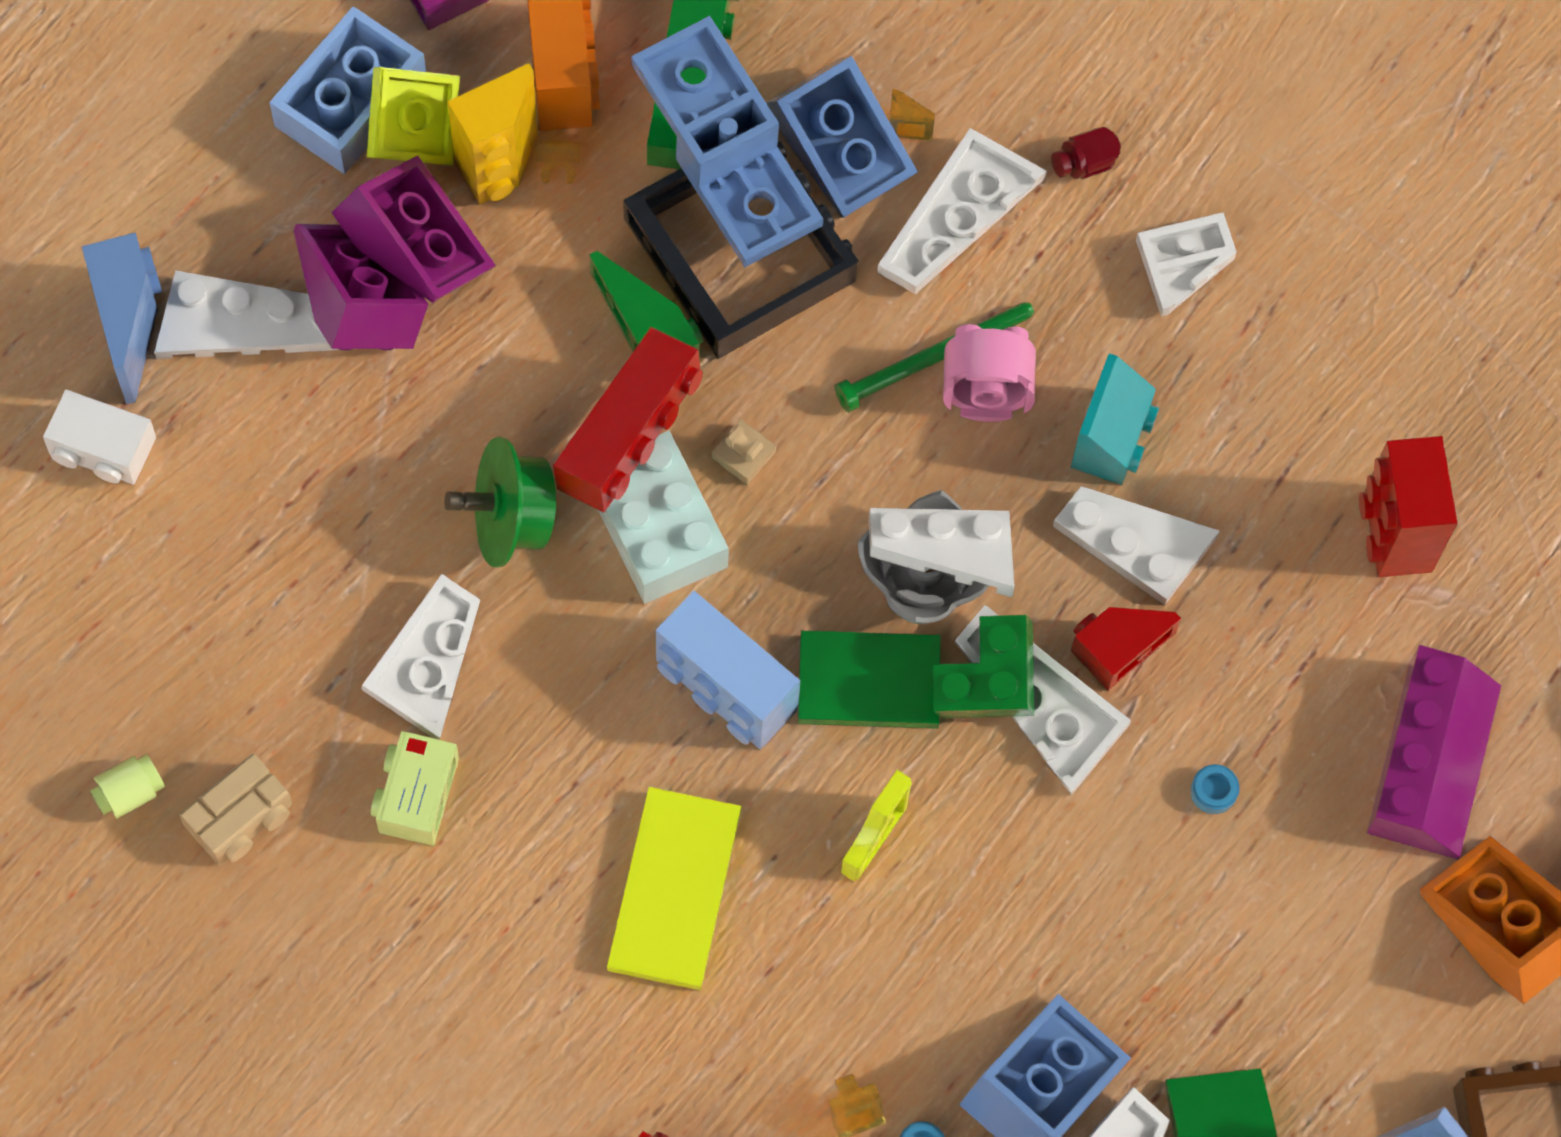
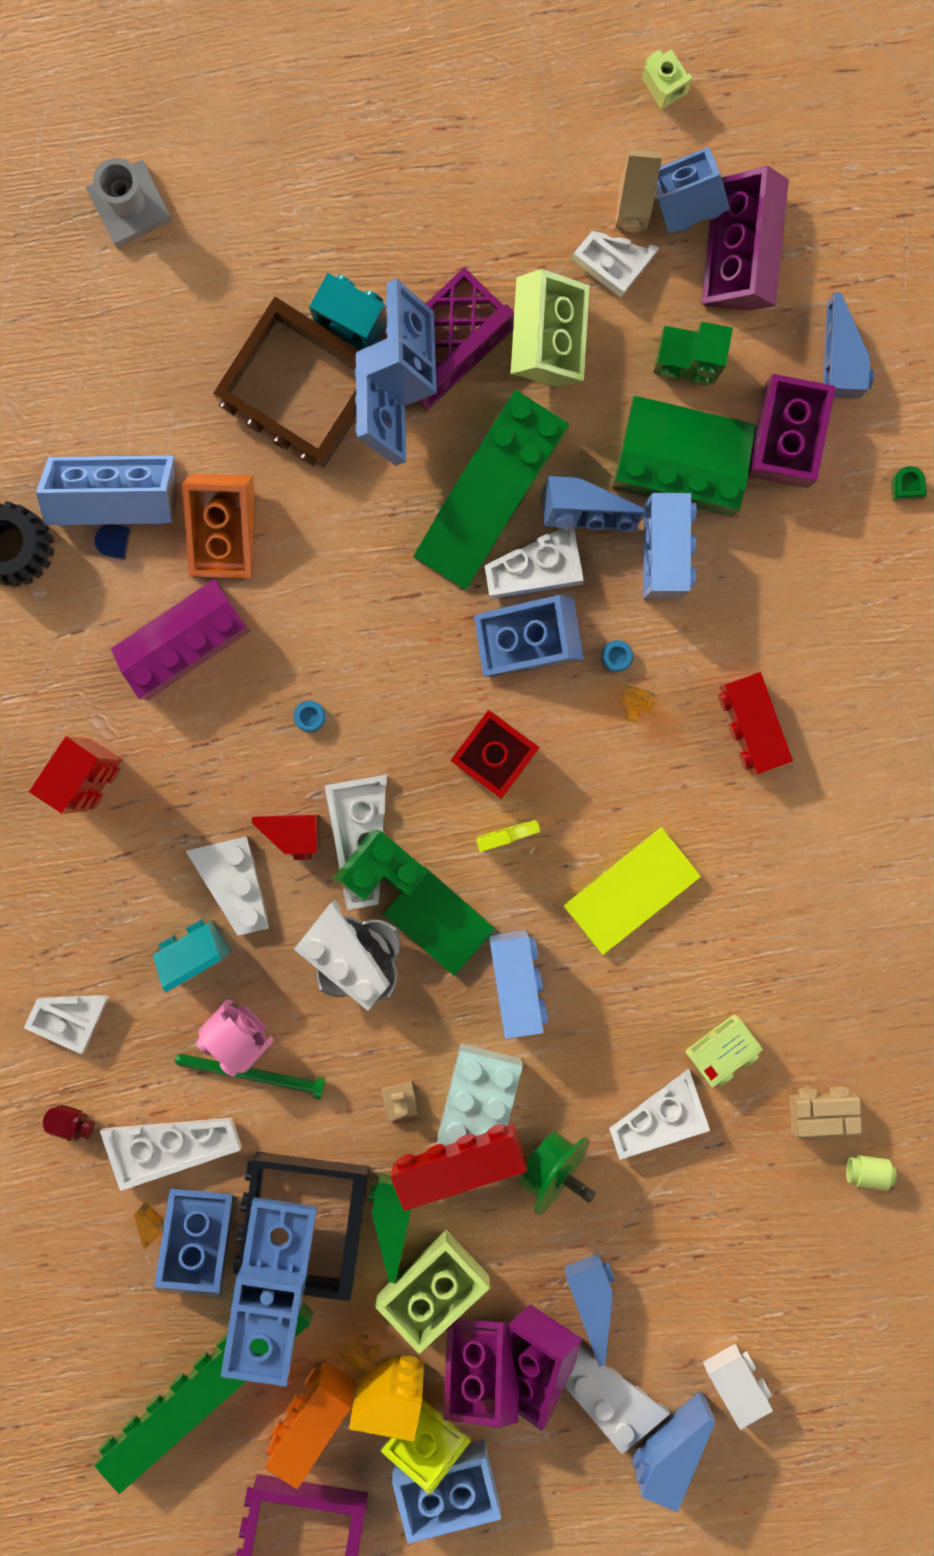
camera: 140 degrees left, 20 degrees up
(352, 409) = (593, 1295): none -> medium blue slope
(538, 278) = (432, 1291): none -> yellowish green brick
(970, 907) = (494, 754): none -> red brick

